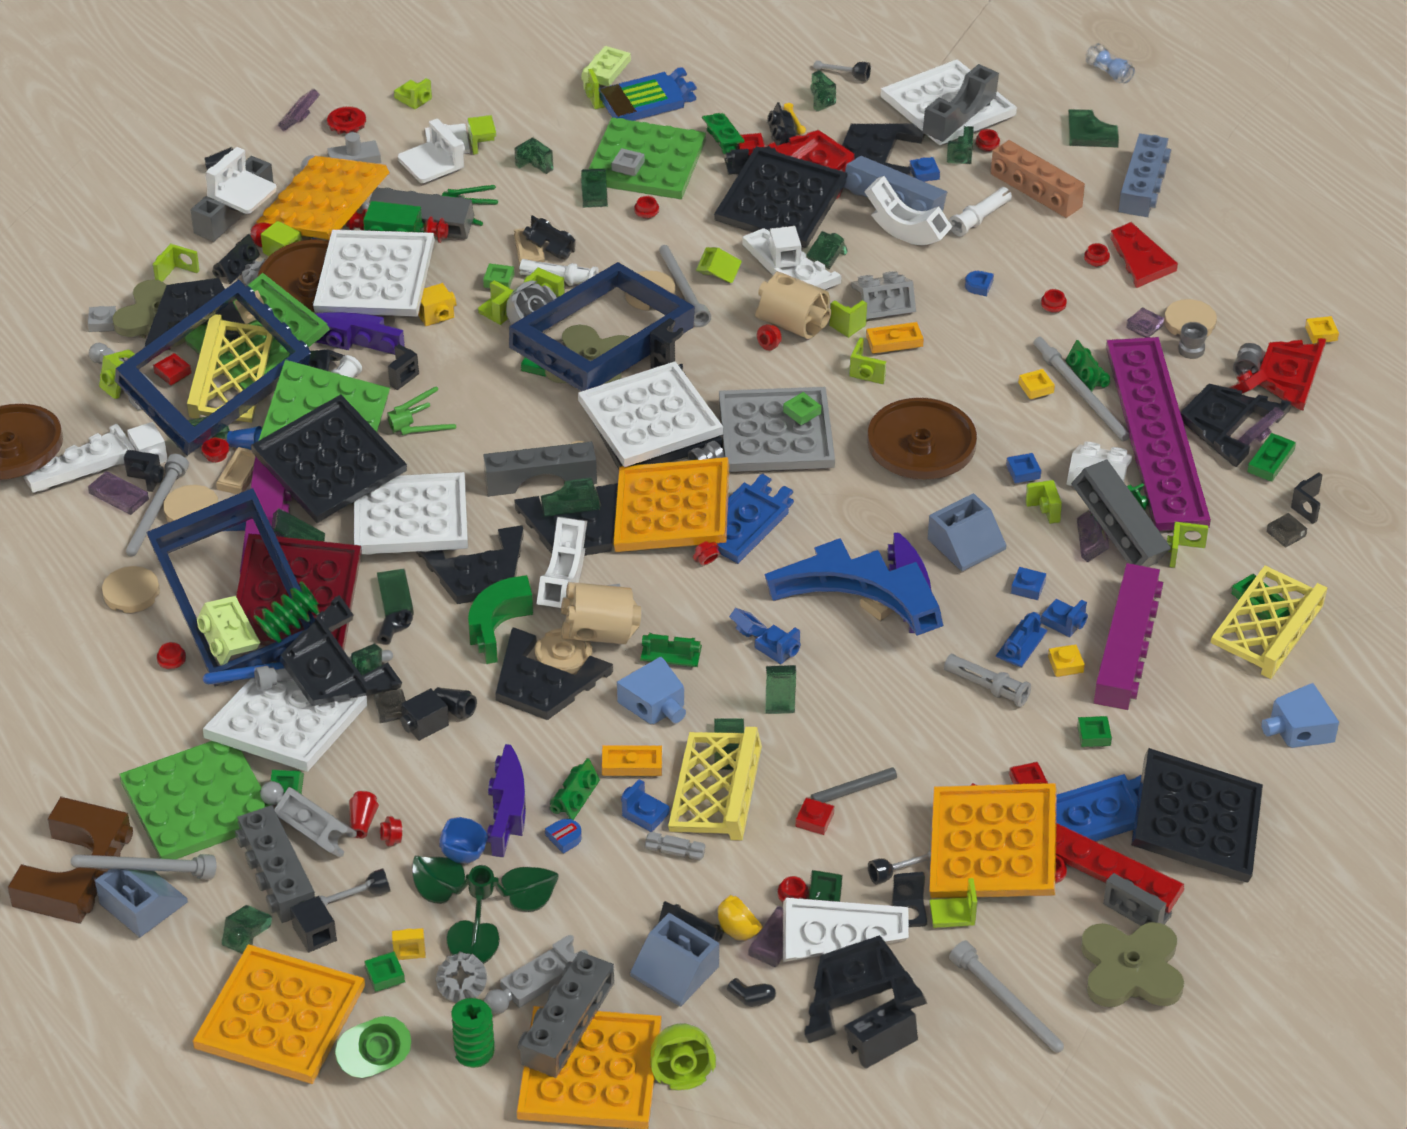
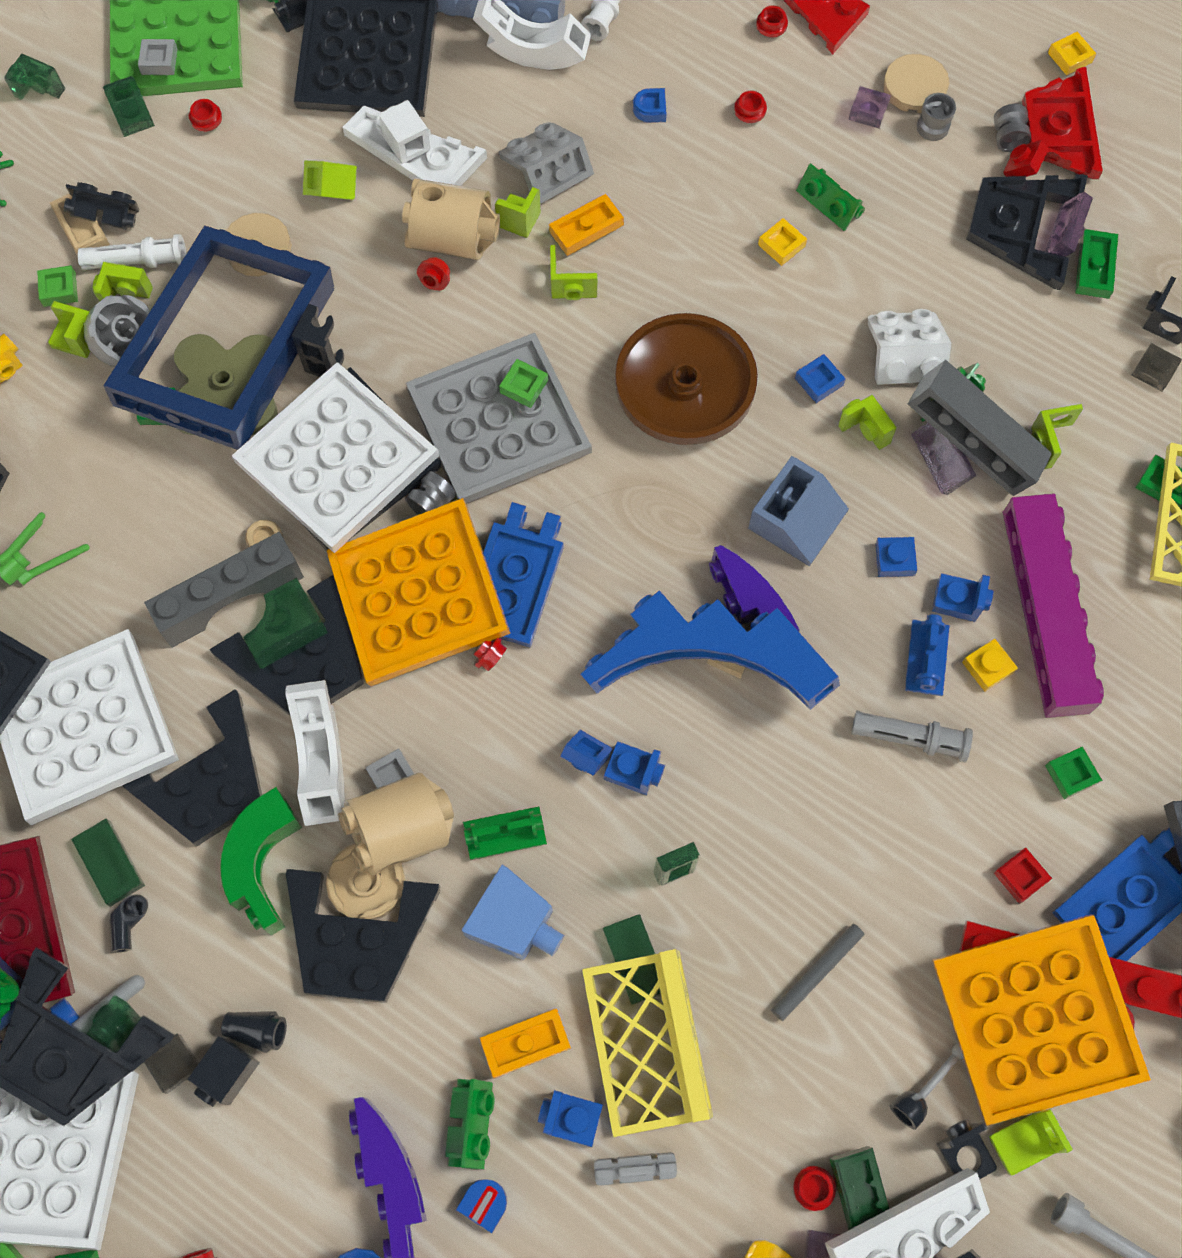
camera: 20 degrees left, 25 degrees up
(702, 314) = (338, 263): light grey piece -> none
(814, 816) = (790, 1042): red plate -> none
(827, 249) = (452, 114): clear green bracket -> none
(1054, 359) = (783, 193): light grey bar -> none
(1157, 433) = (954, 273): magenta plate -> none

